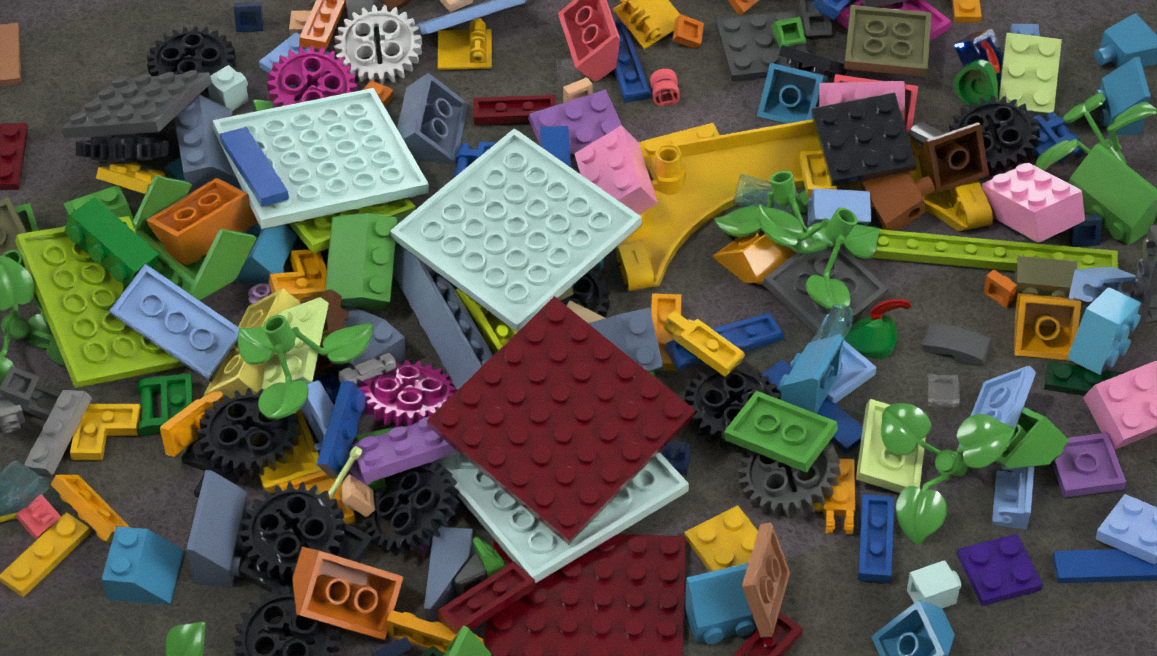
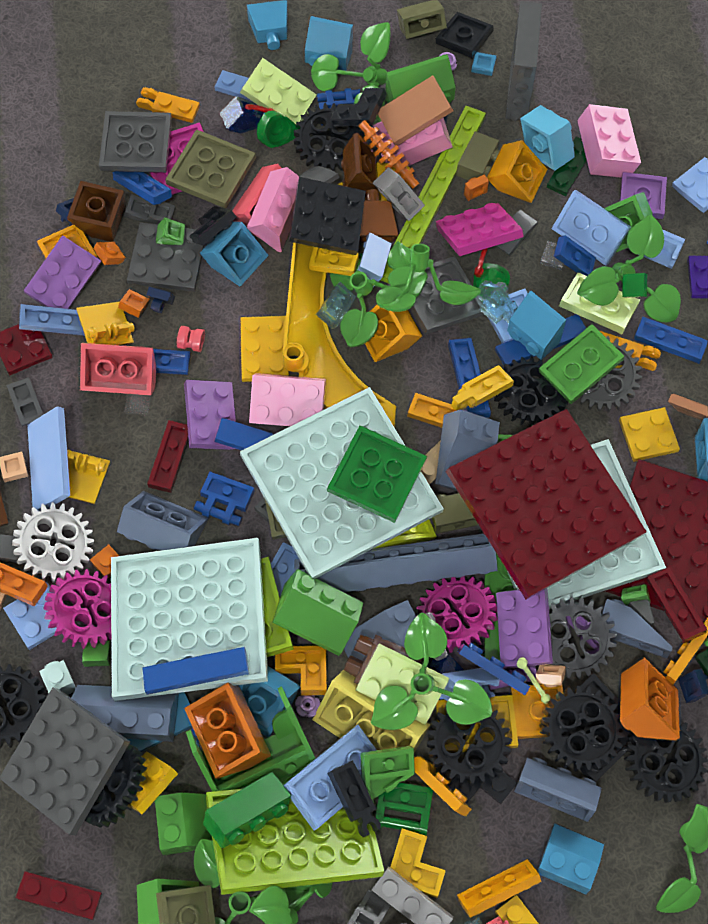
camera: 75 degrees left, 15 degrees up
(153, 335) = (354, 797): none -> black plate
(194, 361) = (386, 768): none -> bright green wing
(530, 246) = (377, 474): none -> green plate
(577, 90) = (172, 404): light nougat plate -> none
(703, 50) = (159, 299): none -> dark blue tile
(927, 468) = (634, 285): none -> green tile
(934, 297) = (479, 229): none -> dark pink plate
(937, 205) = (398, 193): none -> light grey brick
(944, 403) = (574, 256): none -> blue plate
(983, 176) = (371, 133): none -> orange piece
(1025, 135) = (365, 109): none -> black plate
(1052, 176) = (414, 110): none -> nougat tile
(1092, 282) = (502, 121): light blue hinge -> none

